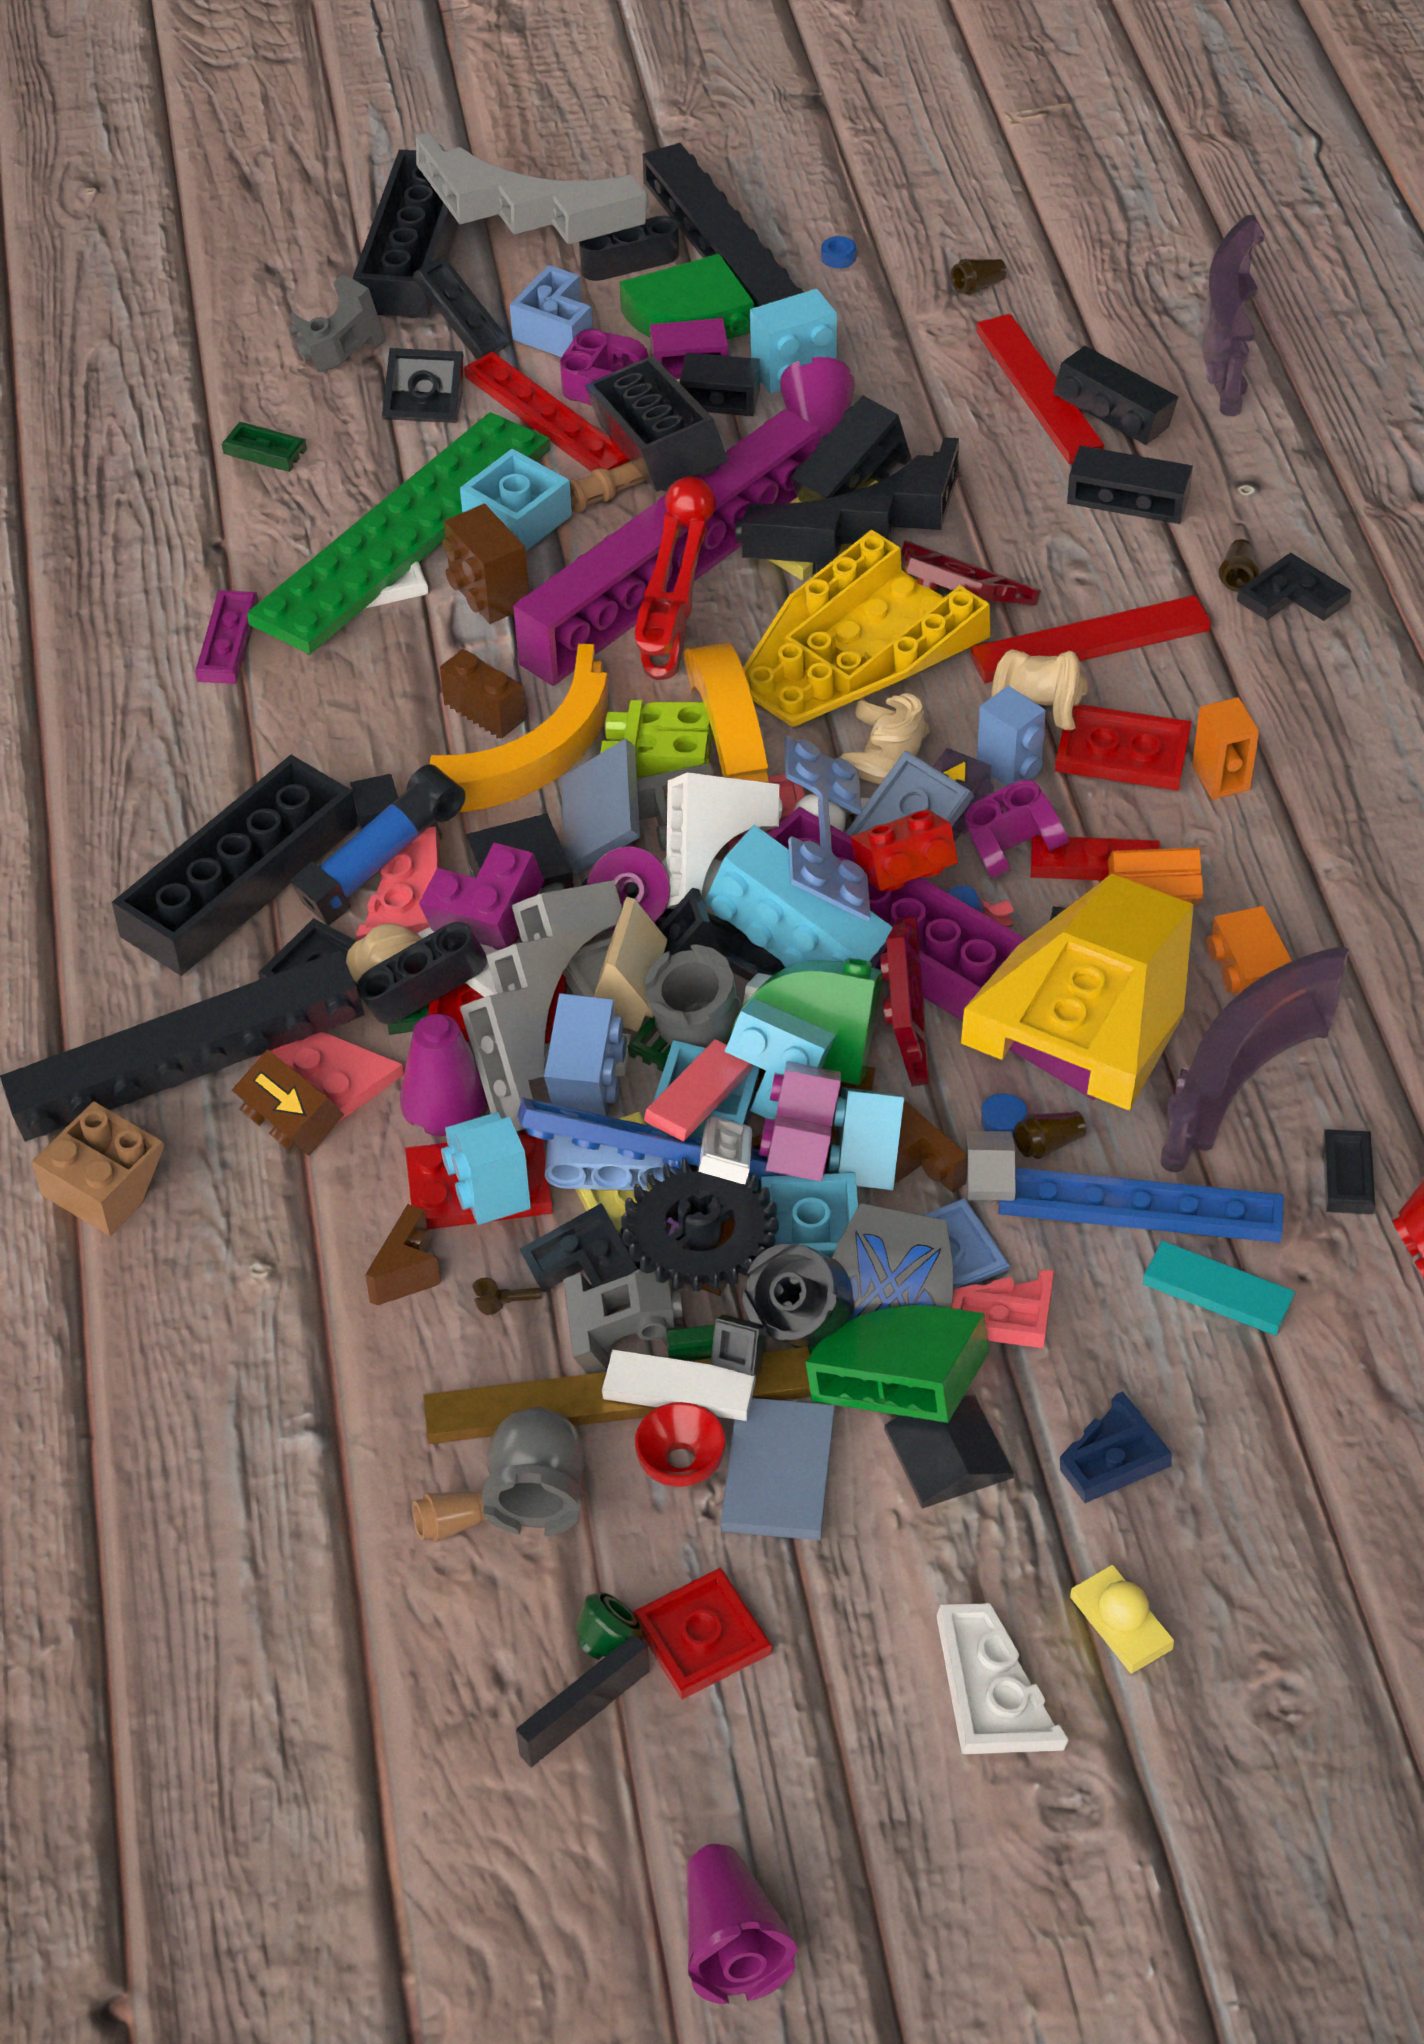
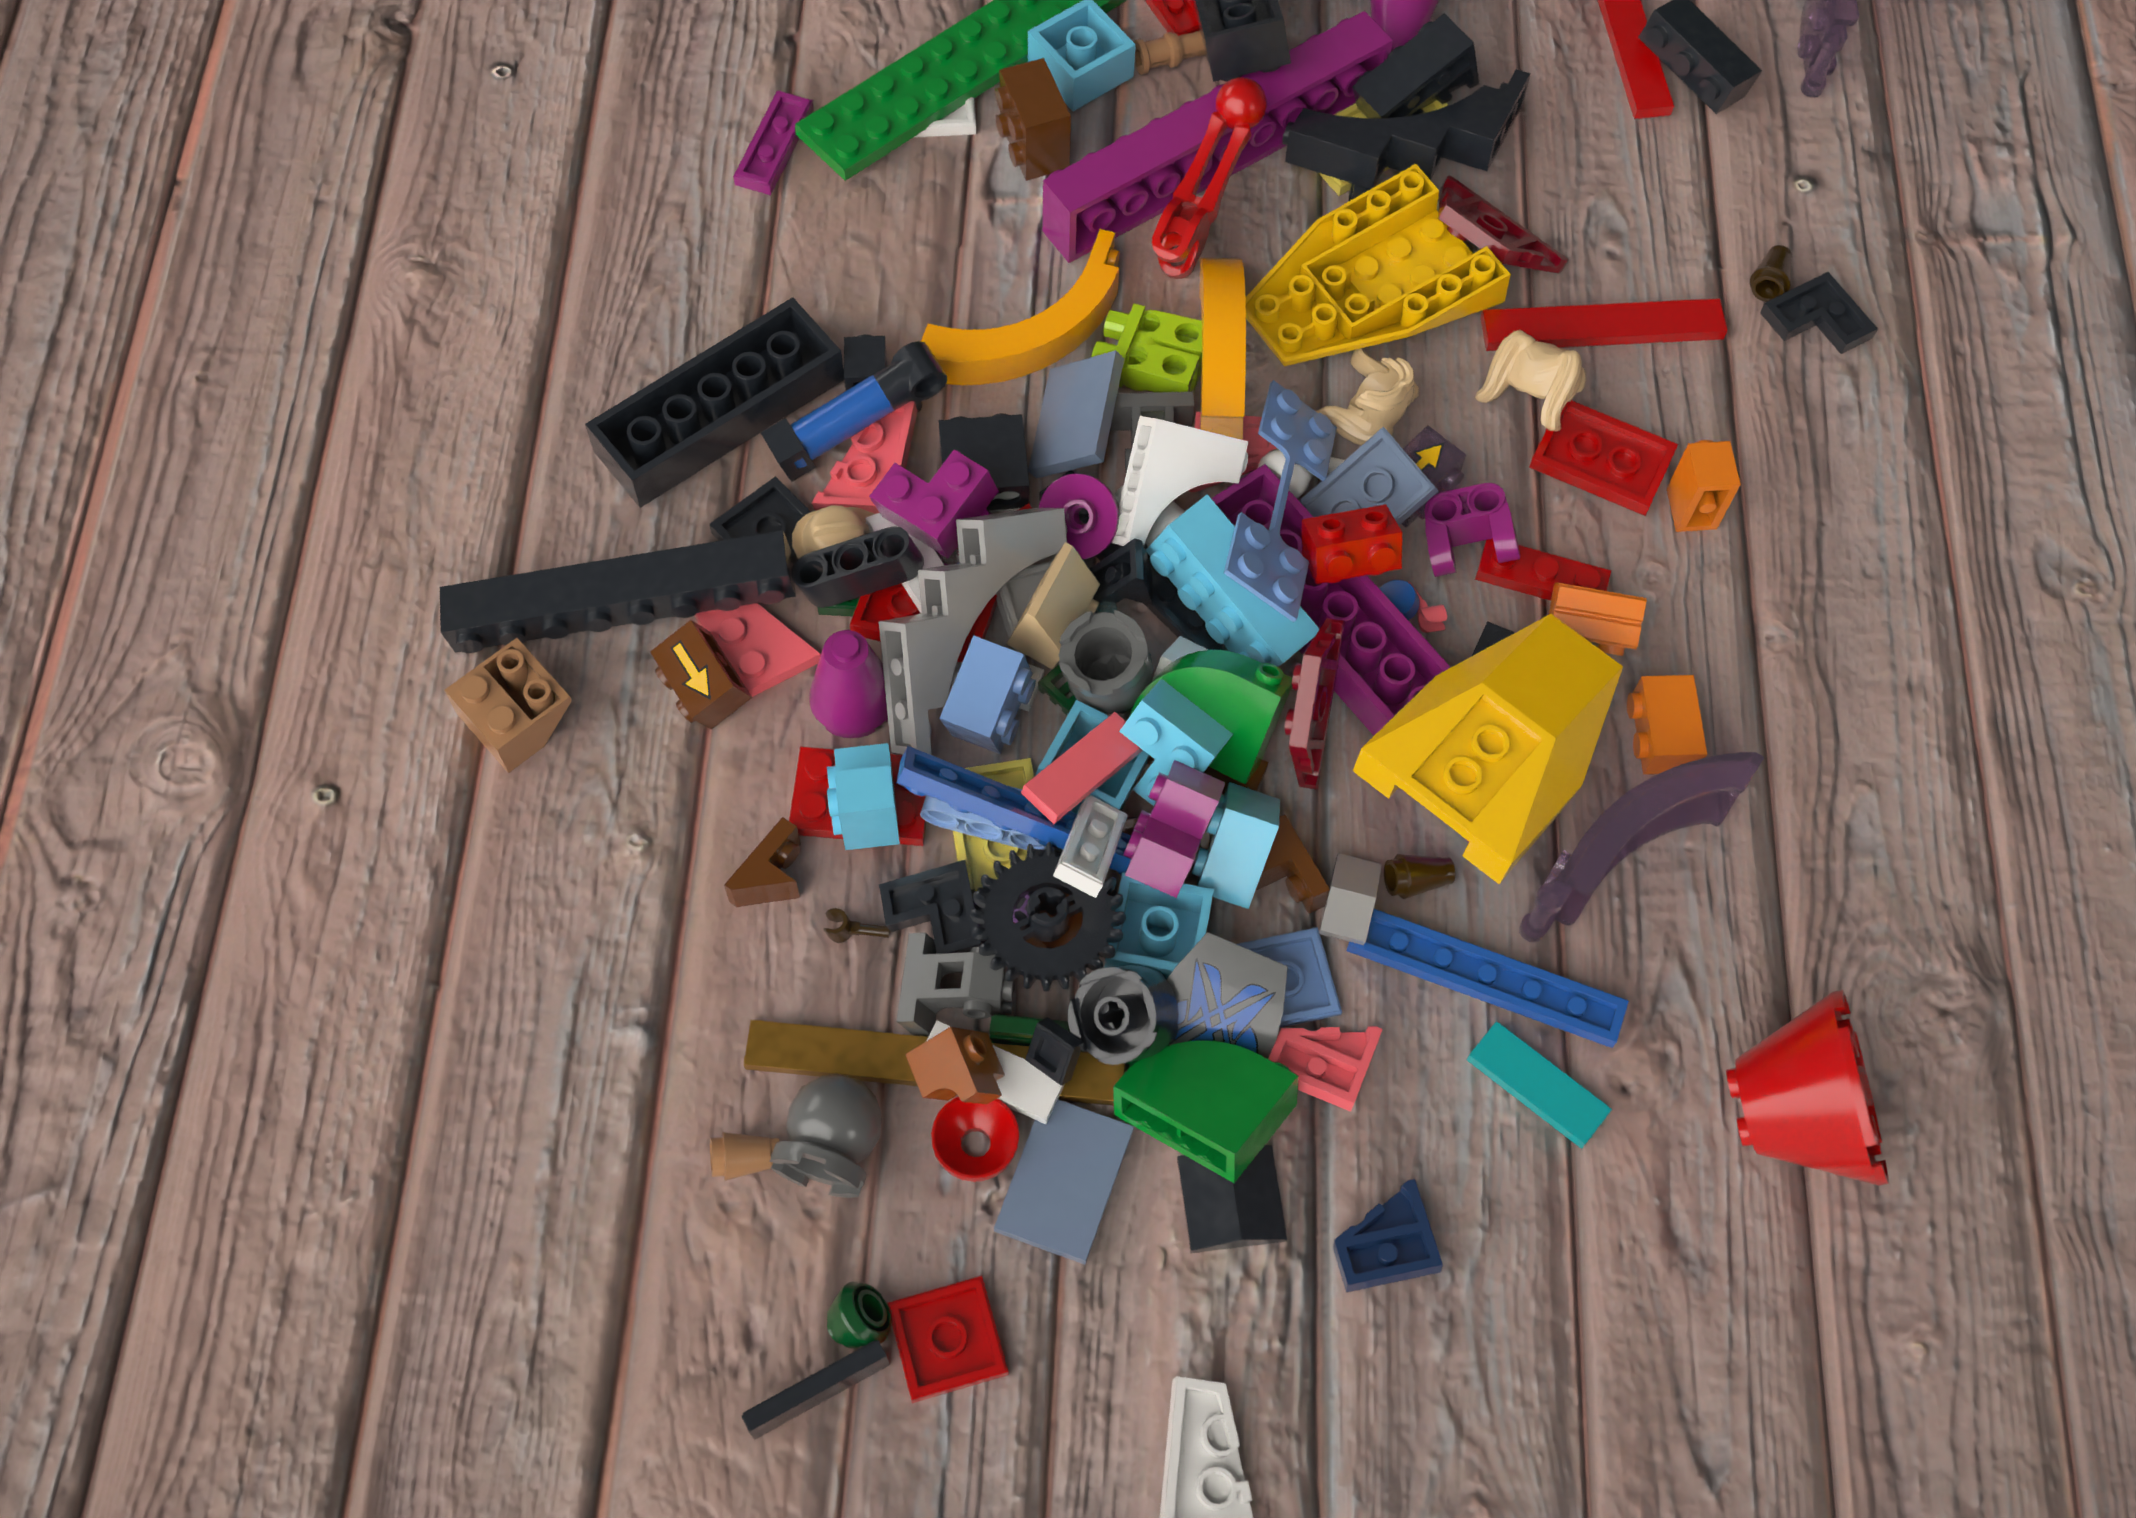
camera: 10 degrees right, 15 degrees up
(482, 693) = (996, 261): reddish brown brick -> none
(644, 1373) = (957, 1064): none -> brick
(1002, 1112) = (1379, 841): blue tile -> none
(1011, 736) = (1493, 427): medium blue brick -> none
(1122, 1618) = (1349, 1426): light yellow tile -> none
(1129, 484) = (1687, 158): black brick -> none
(1348, 1171) = (1700, 984): black tile -> none

